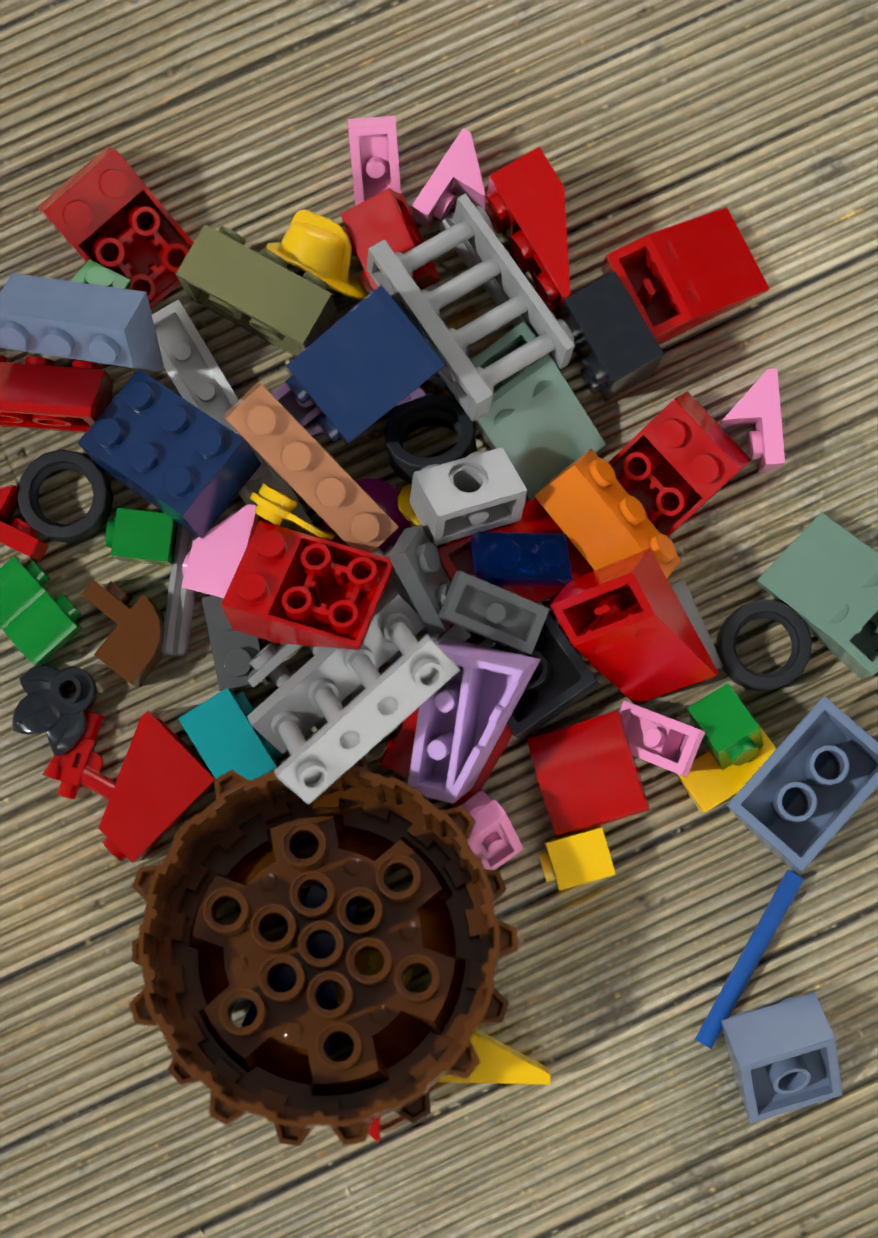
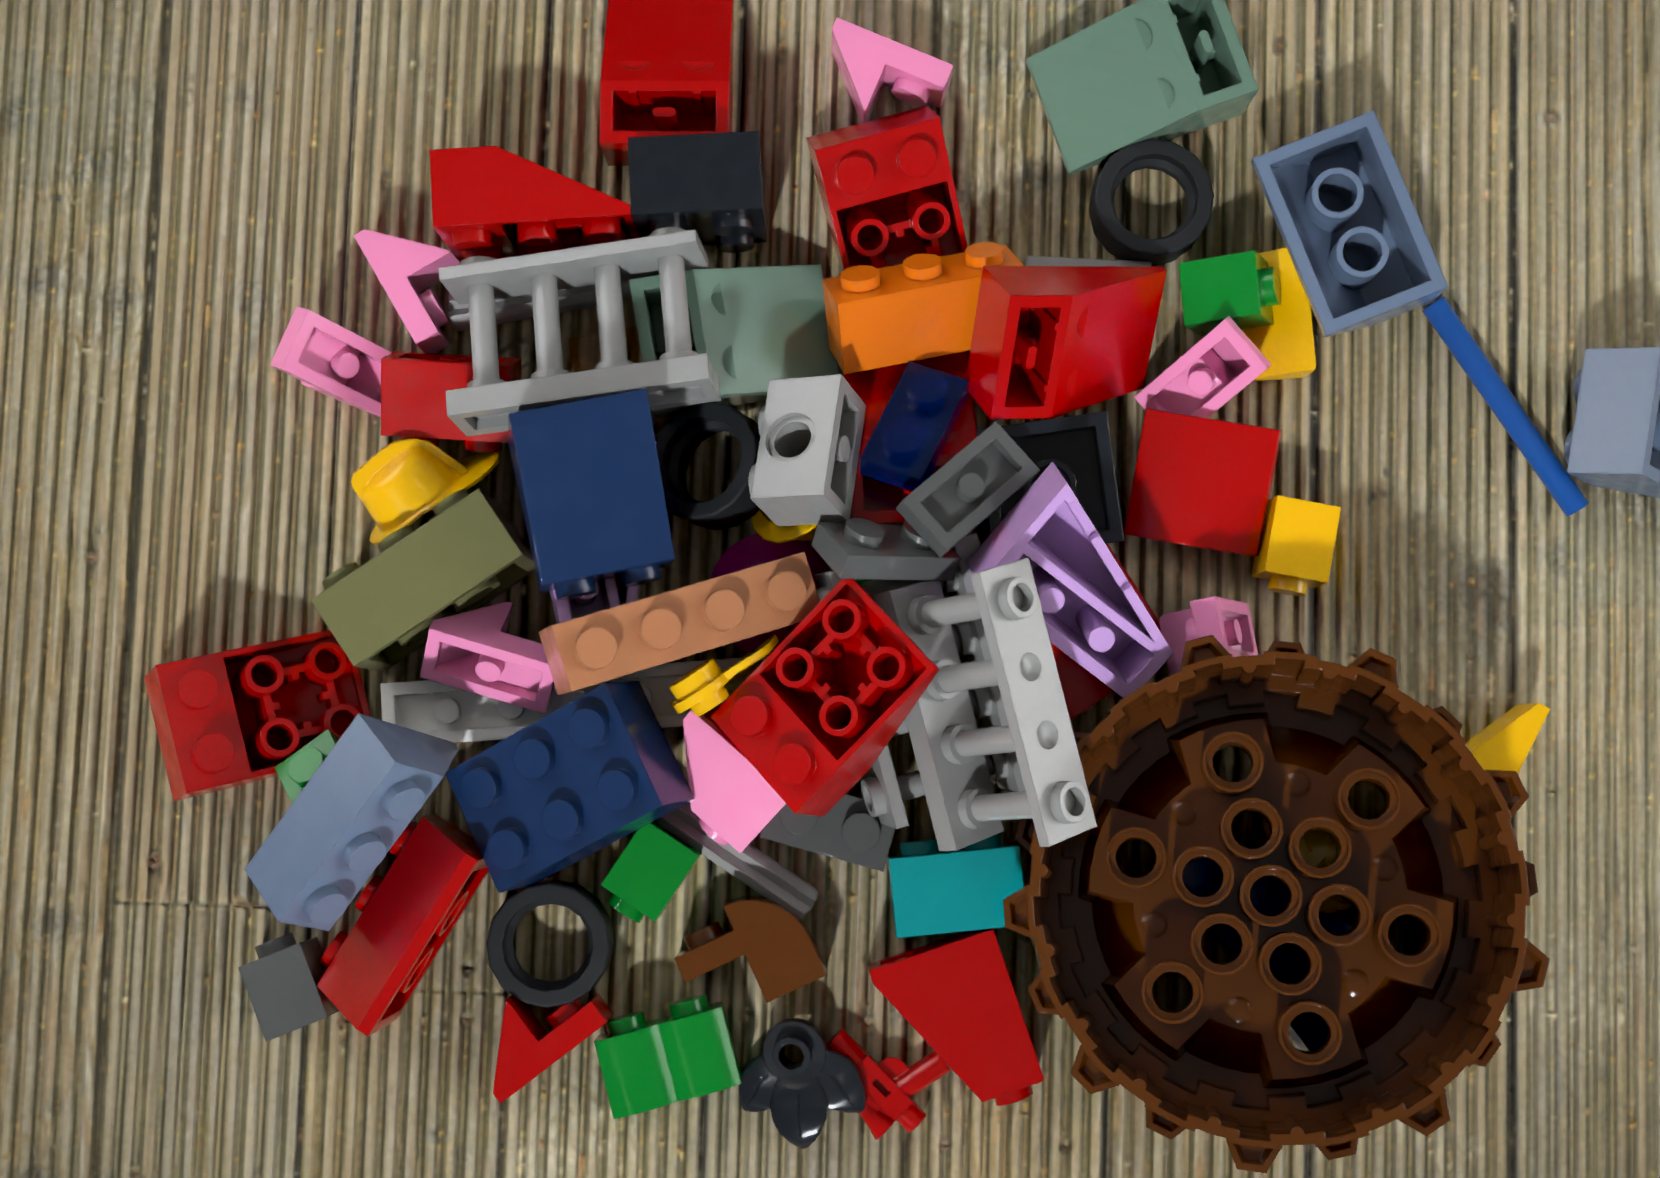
camera: 70 degrees left, 0 degrees up
(226, 354) = (482, 658): none -> bright pink slope

